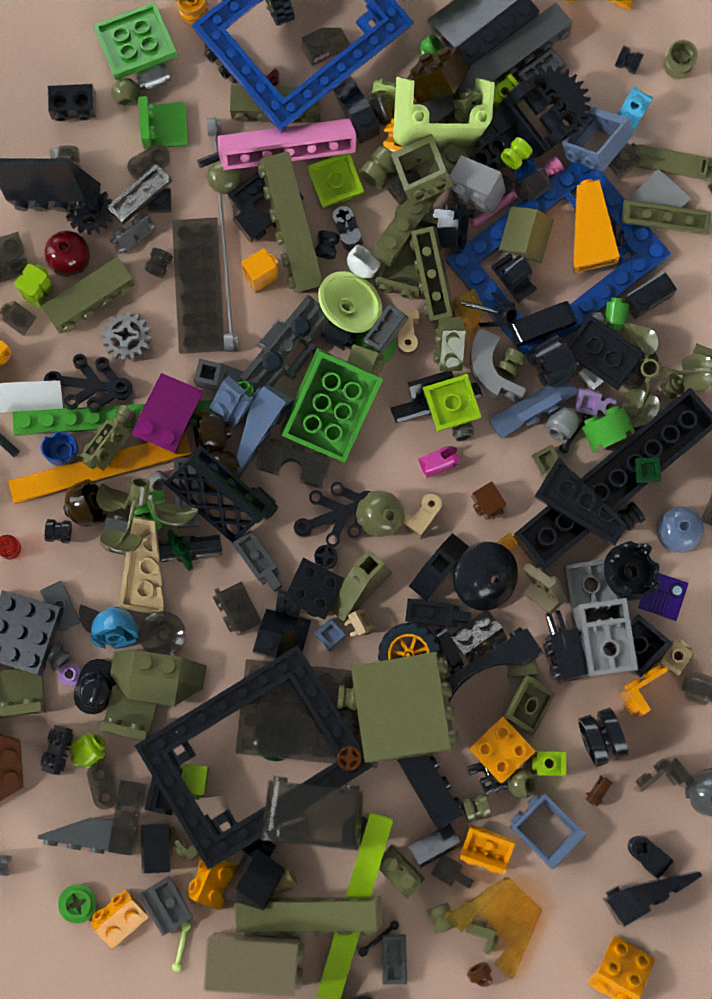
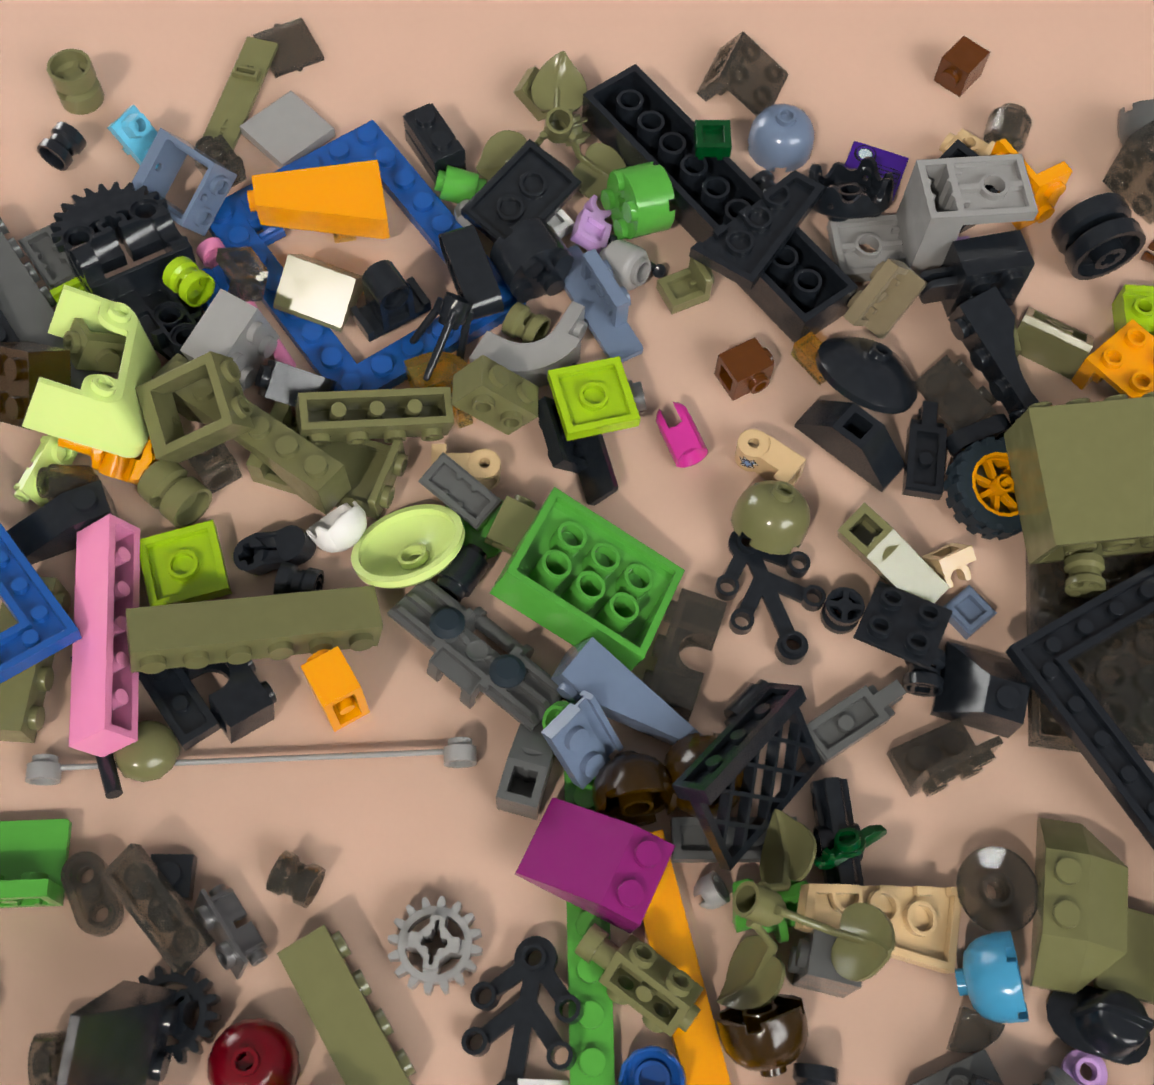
camera: 90 degrees left, 15 degrees down
(198, 285) = (346, 807): clear smoke plate -> none
(666, 217) = (317, 118): olive tile -> none

